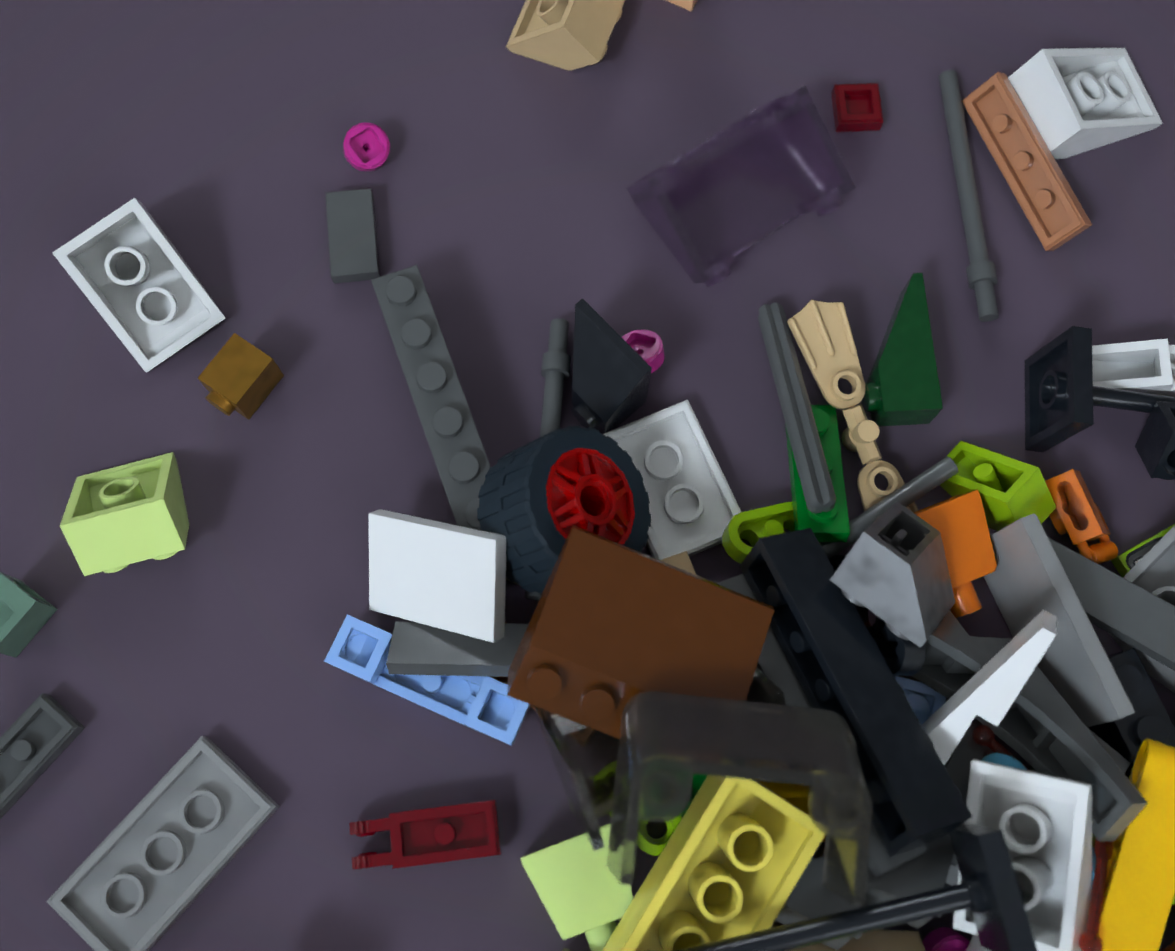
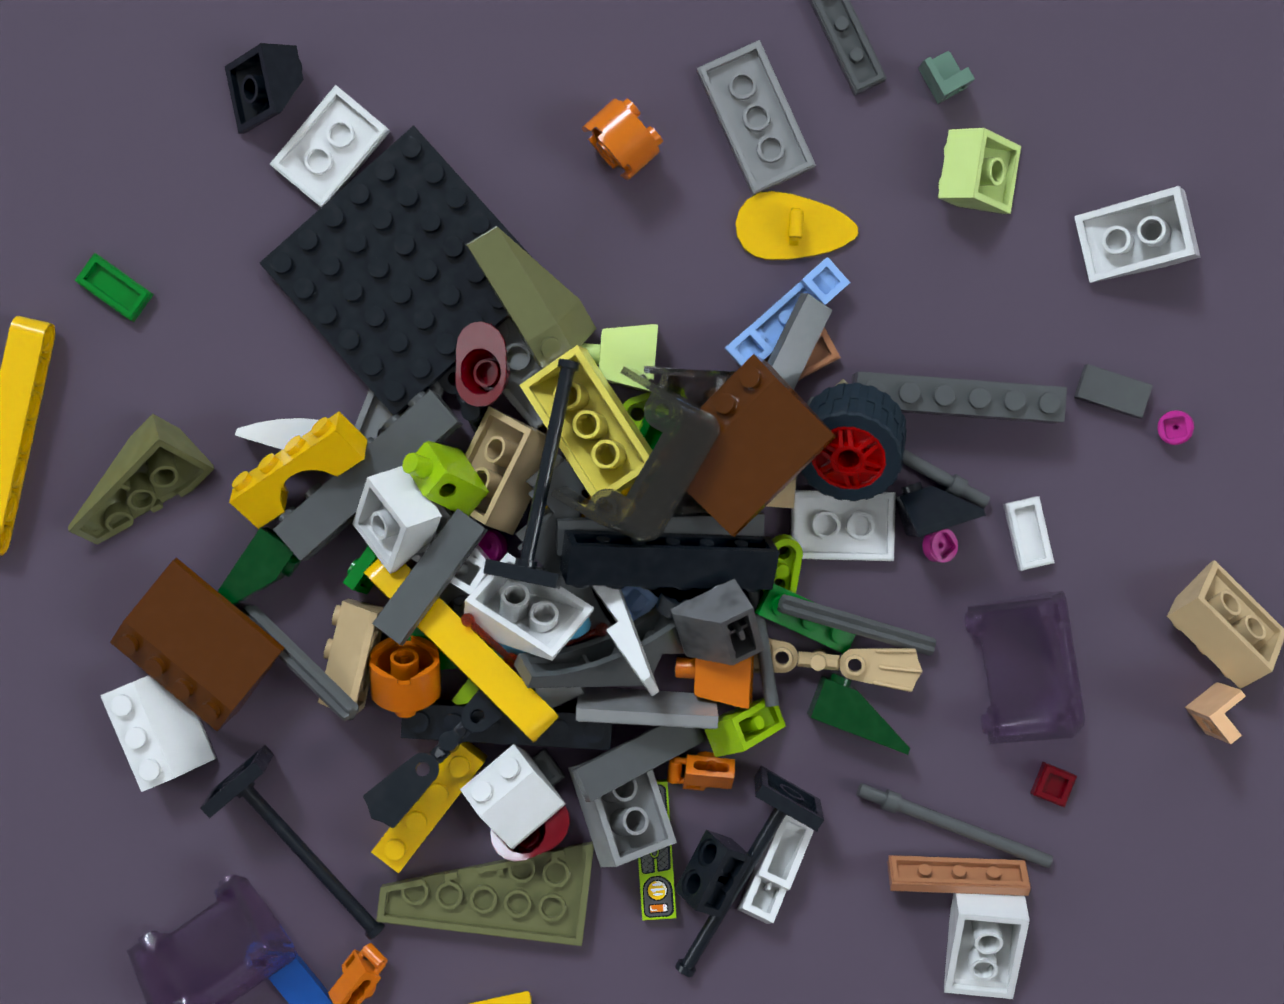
camera: 120 degrees right, 15 degrees up
(240, 377) = (1040, 275): pearl gold brick -> none
(303, 733) = (791, 227): none -> yellow shield
(433, 835) = (693, 280): dark red hinge -> none
(437, 574) = (849, 346): white tile -> none
(573, 258) = (1028, 533): none -> white tile

